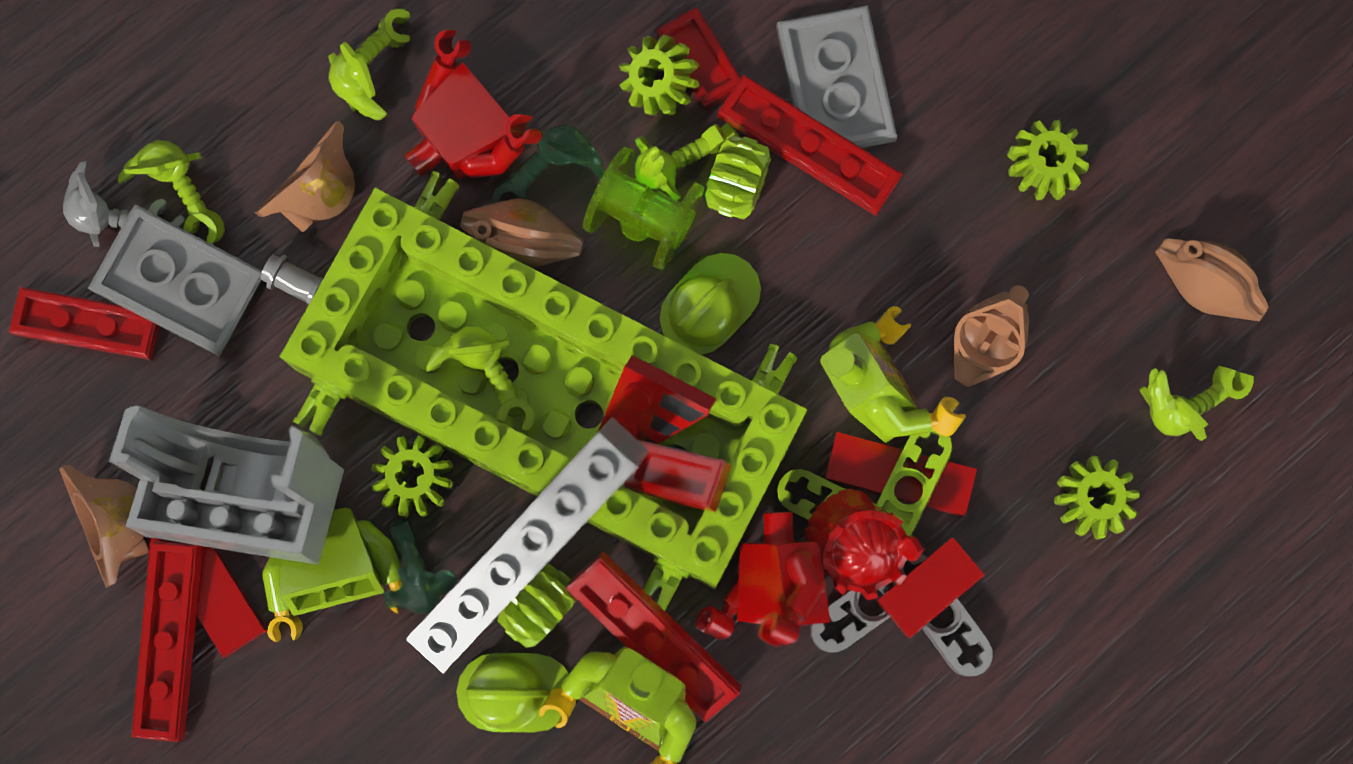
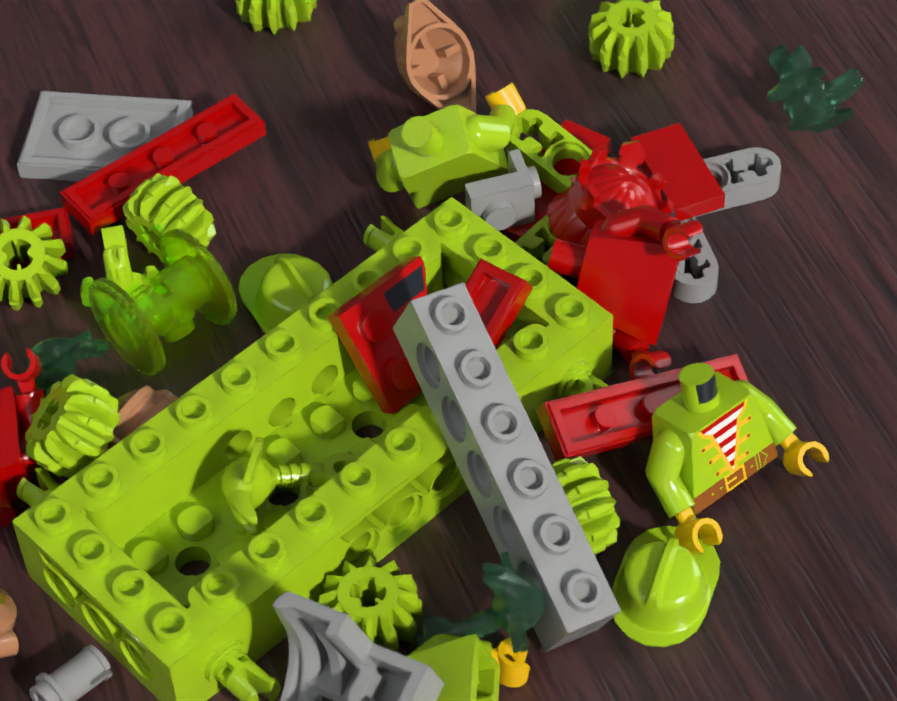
camera: 70 degrees left, 30 degrees down
(480, 193) = (72, 426): none -> lime gear
(838, 448) = (506, 198): none -> light grey bracket
(1054, 680) = (806, 99): none -> clear green piece

